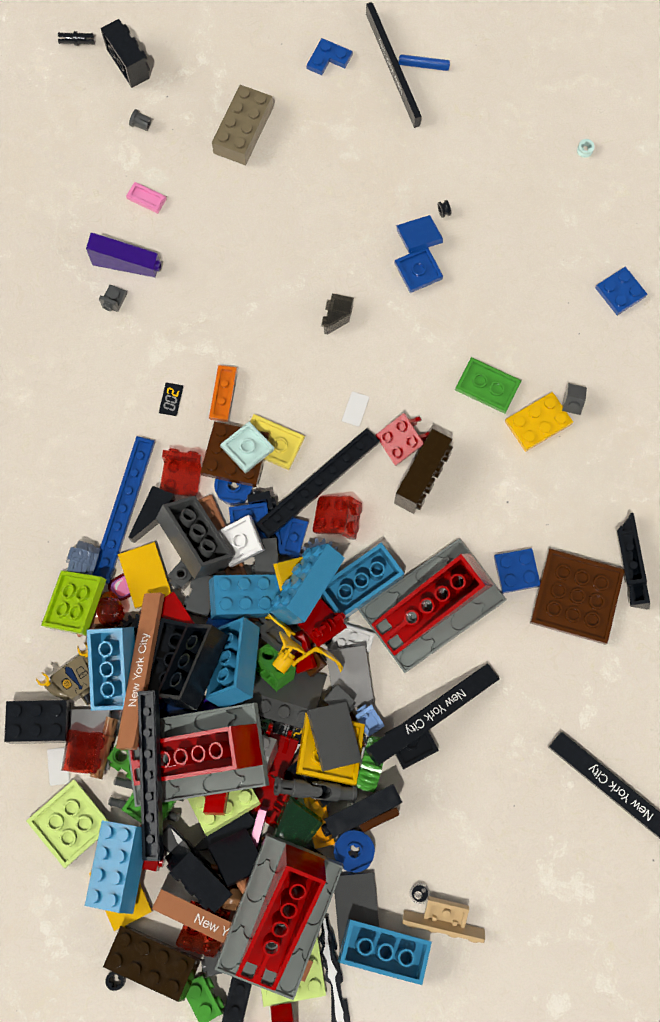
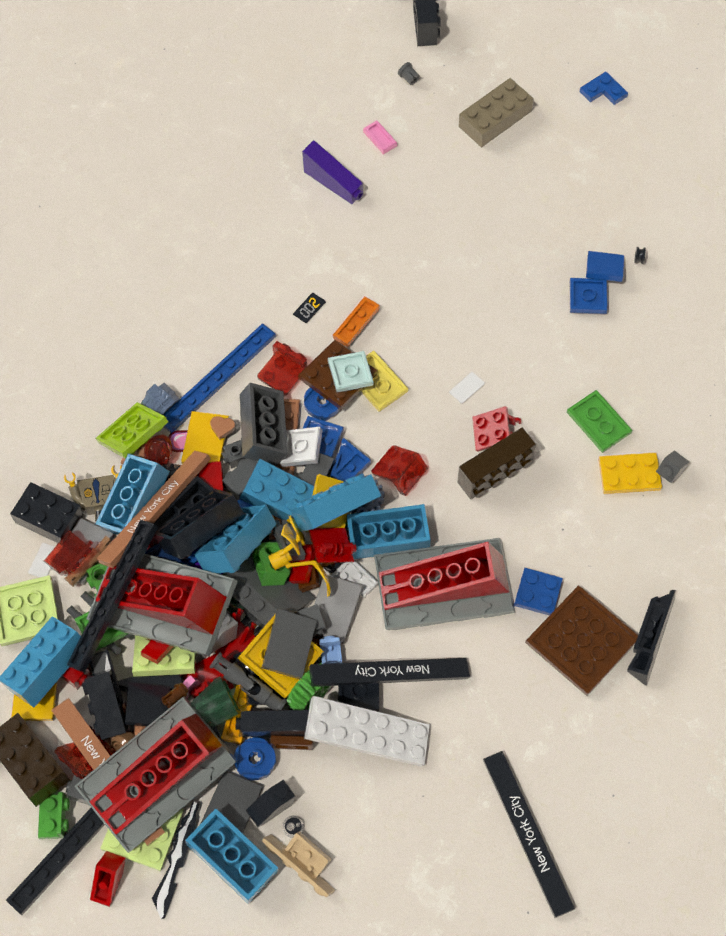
camera: 30 degrees right, 10 degrees down
(113, 298) = (305, 205): dark grey bracket -> none
(147, 517) = (230, 393): black slope -> none
(156, 556) = (222, 427): none -> nougat tile
(257, 835) = (174, 695): none -> reddish brown pin
(260, 497) = (341, 420): black bracket -> none
(317, 483) = (397, 432): black tile -> none
(338, 313) = (494, 300): clear smoke slope -> none
(391, 885) = (271, 803): none -> black slope
(393, 65) = (658, 119): black tile -> none
(424, 62) = (689, 128): blue axle -> none
(441, 778) = (367, 731): none -> white plate

